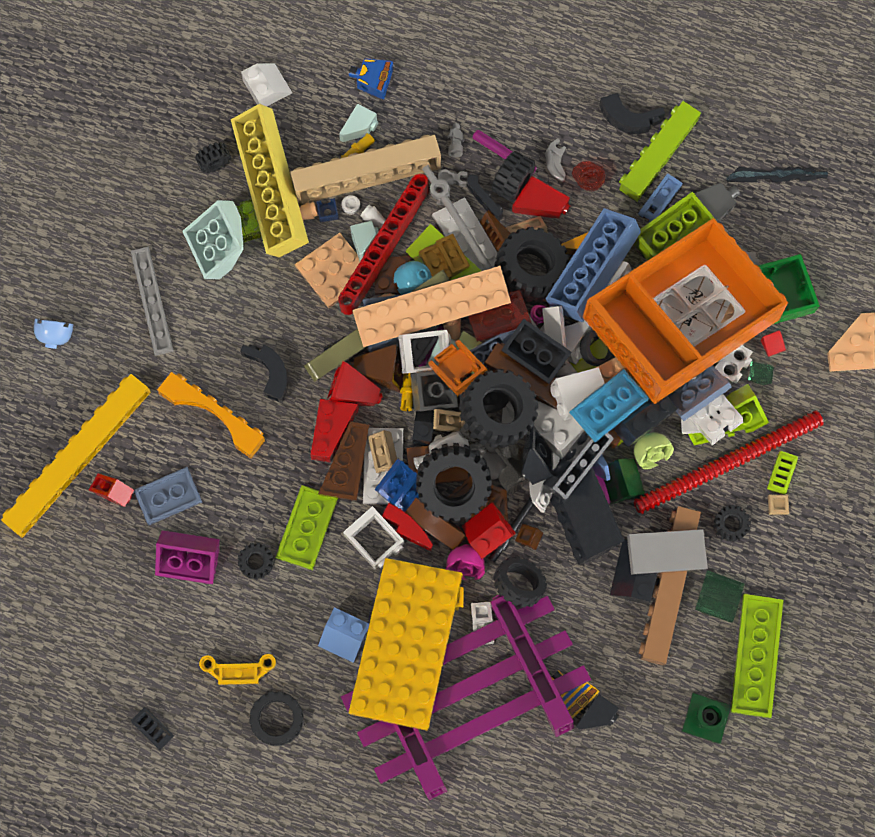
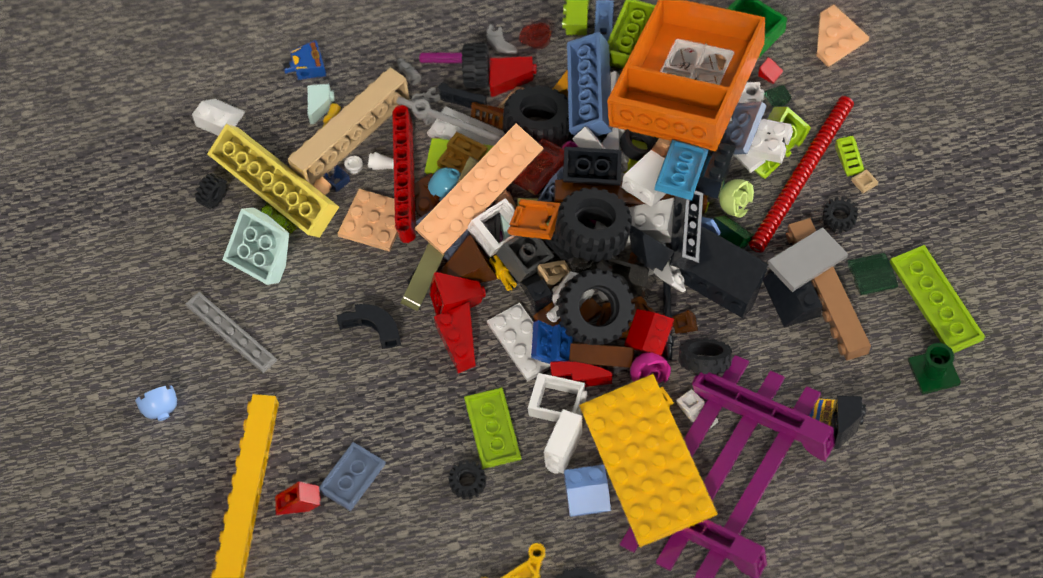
camera: 25 degrees left, 15 degrees down
(181, 393) = (304, 386): light orange arch -> none
(186, 557) = (404, 513): magenta slope -> none
(345, 471) = (493, 357): reddish brown wing -> none
(350, 581) = (563, 441): none -> white brick
(363, 236) = (382, 180): light aqua slope -> none
(382, 450) = (515, 327): tan slope -> none

